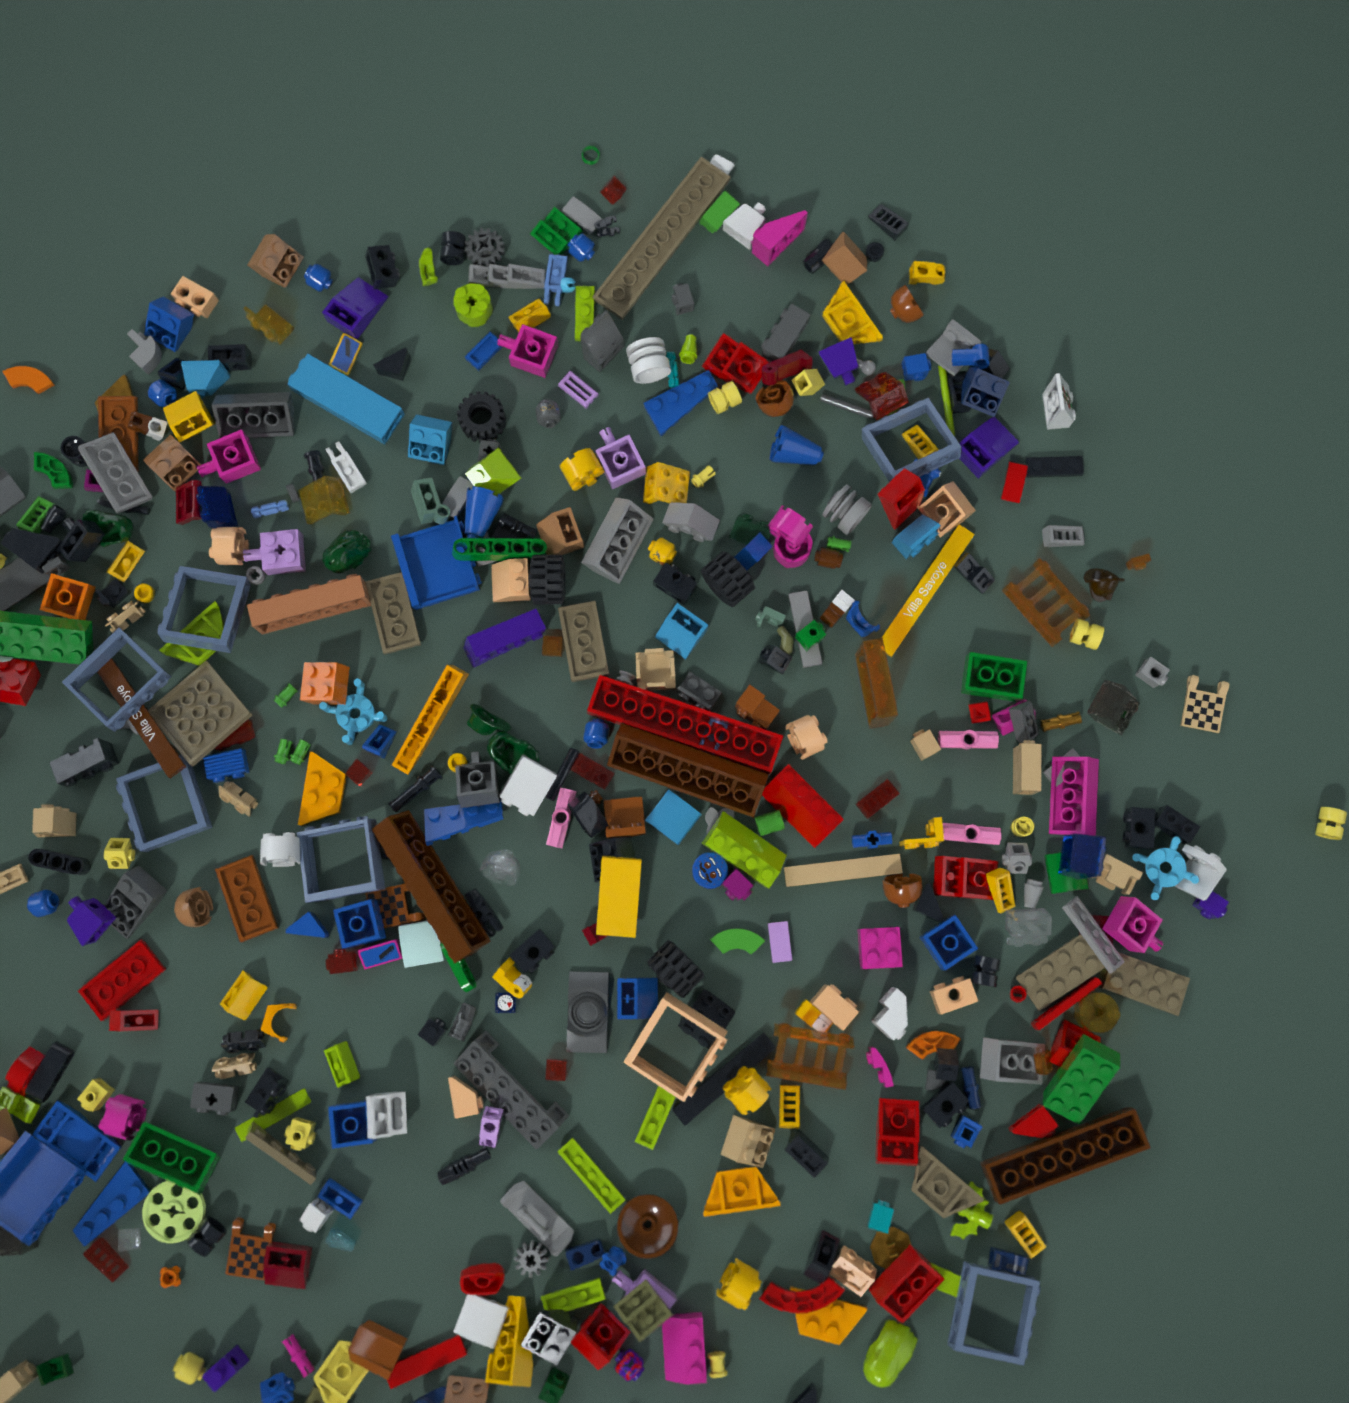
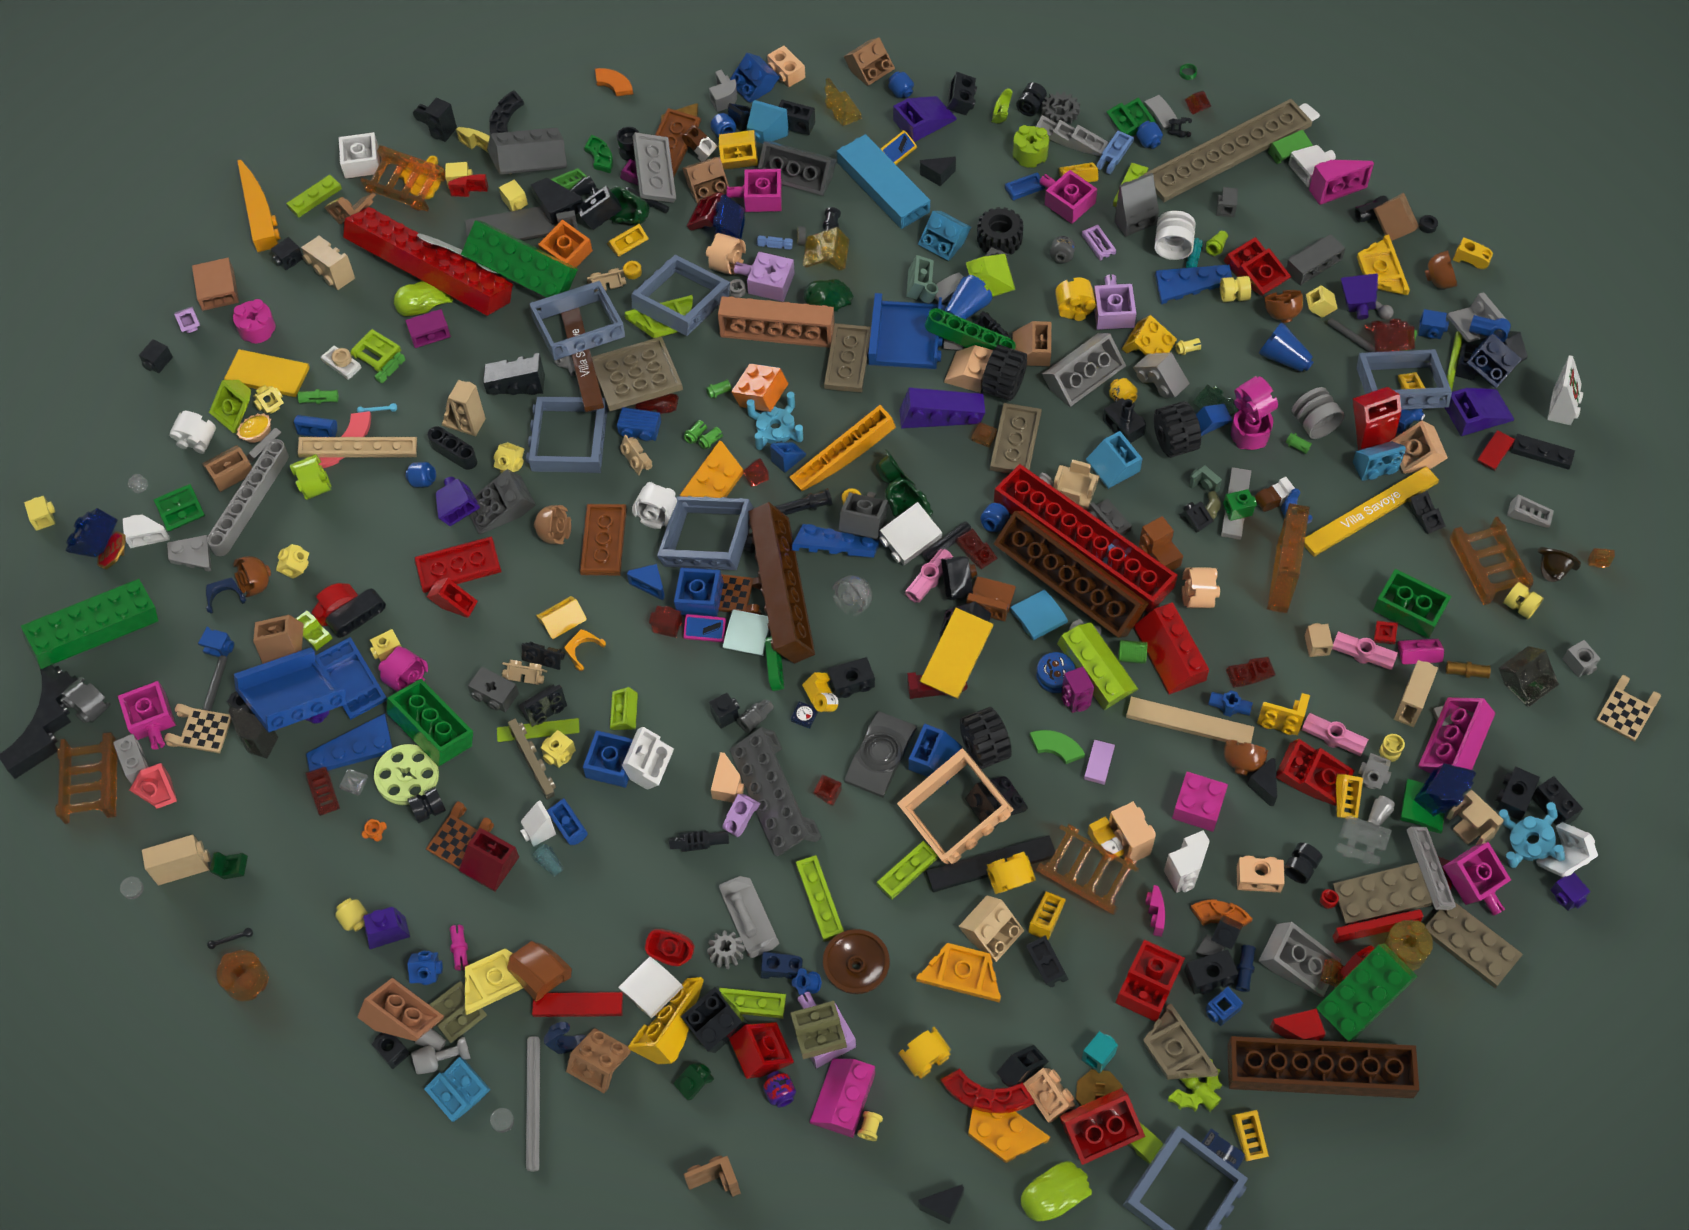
camera: 25 degrees right, 20 degrees down
(113, 594) = (604, 261): black bracket -> none
(346, 469) = (858, 234): white hinge -> none
(483, 912) = (819, 628): black hinge -> none
(567, 285) = (1124, 158): medium azure hinge -> none
(786, 367) = (1303, 280): dark red leg -> none
(828, 558) = (1283, 450): reddish brown brick -> none
(888, 229) = (1453, 214): black slope -> none
(948, 942) = (1273, 820): blue brick -> none
(1024, 721) = (1430, 649): dark grey slope -> none

